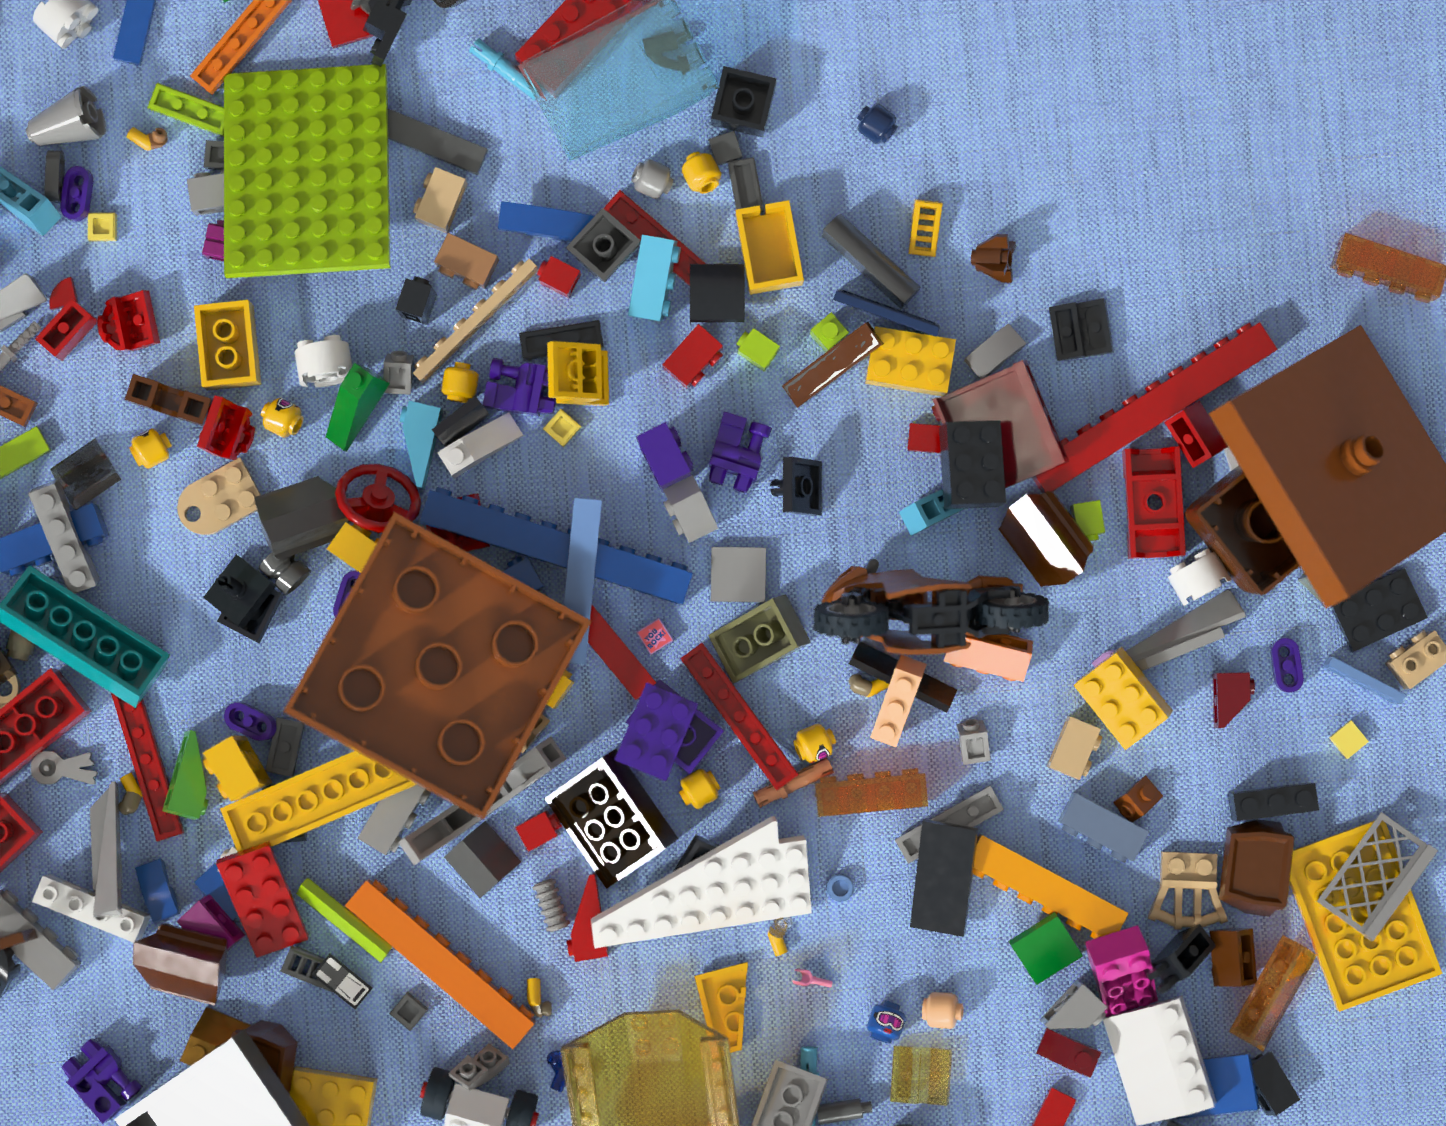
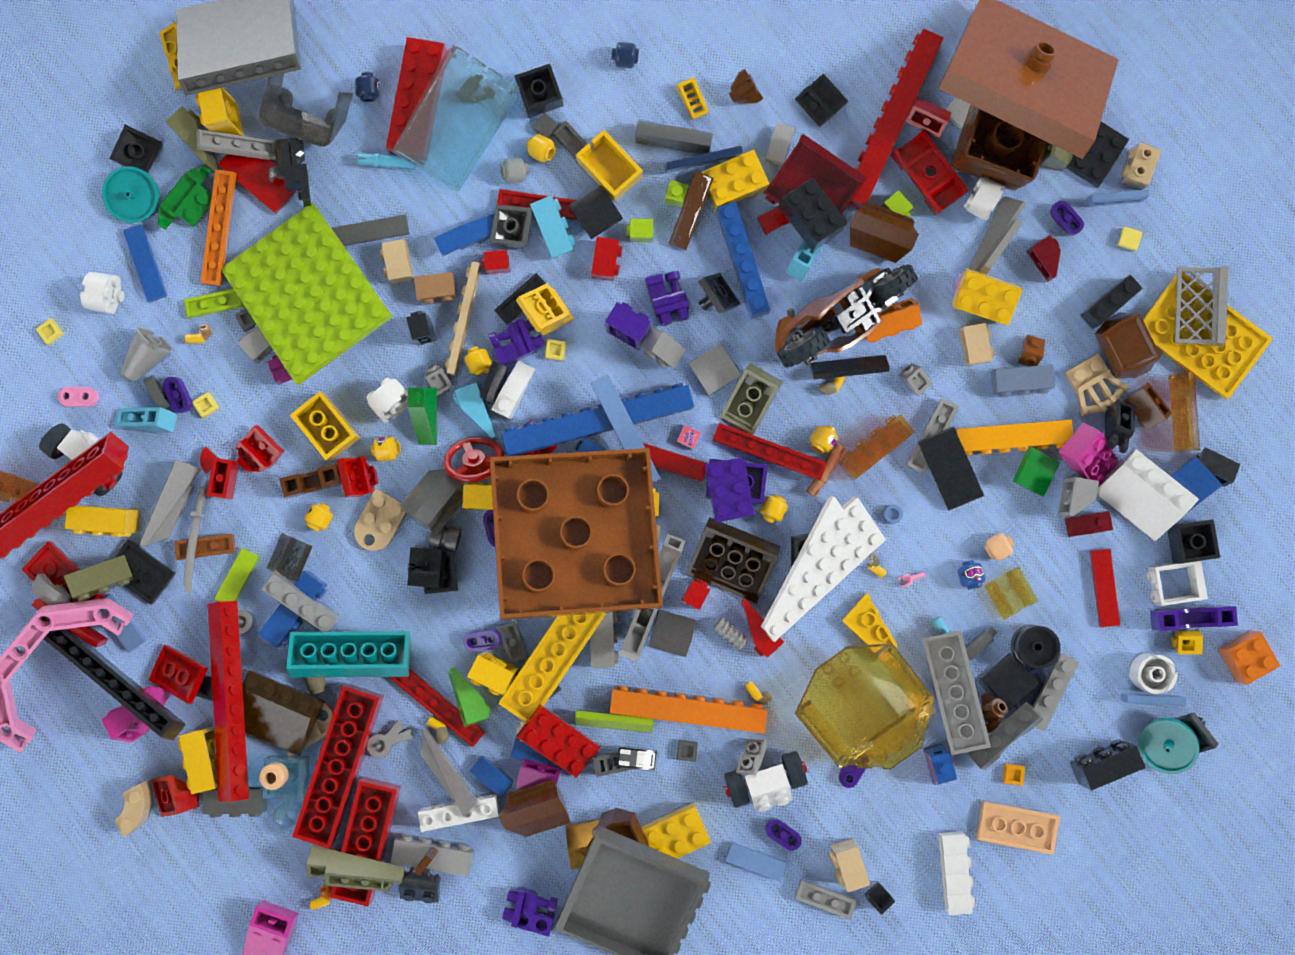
camera: 35 degrees left, 0 degrees up
(555, 1060) = (795, 723): clear blue arm -> none
(857, 465) = (743, 260): none -> blue brick
(898, 700) = (858, 381): light nougat brick -> none

